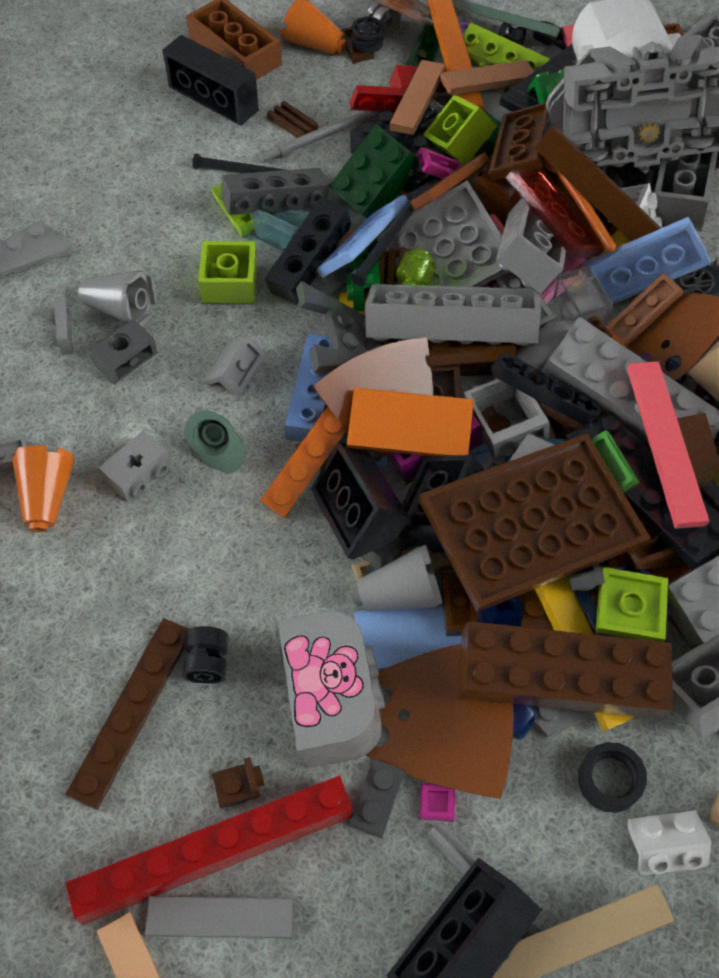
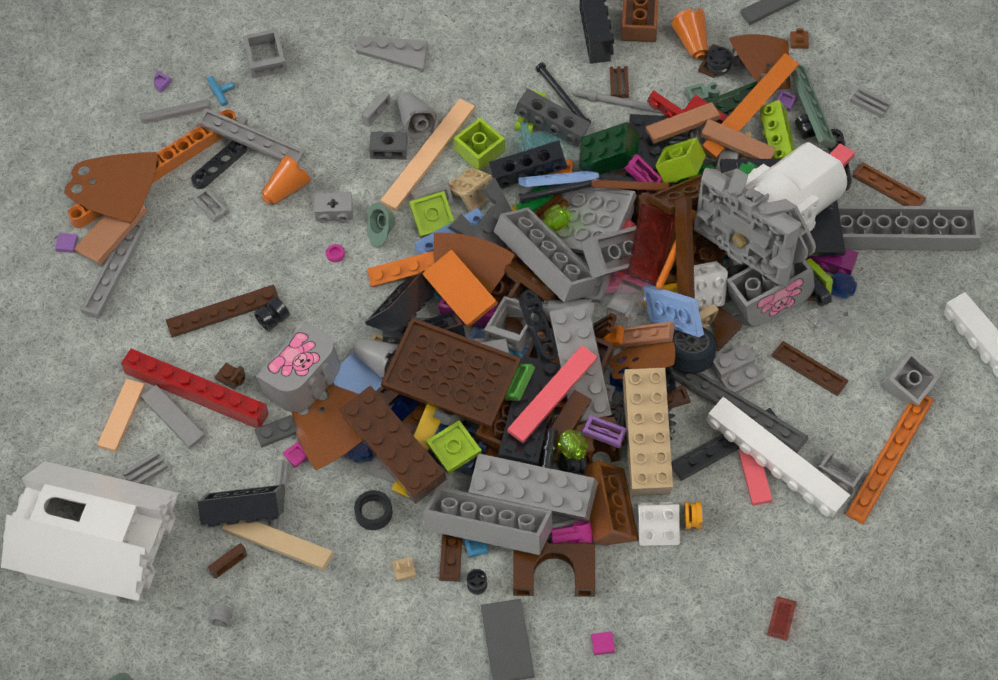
camera: 50 degrees right, 0 degrees up
(178, 331) = (427, 154): none -> light nougat tile
(195, 517) = (335, 253): none -> dark pink tile
(262, 381) = (431, 213): none -> lime plate
(272, 317) = (469, 187): none -> tan bracket
(381, 74) = (702, 91): none -> sand green plate
(670, 842) = (364, 553): white bracket -> none

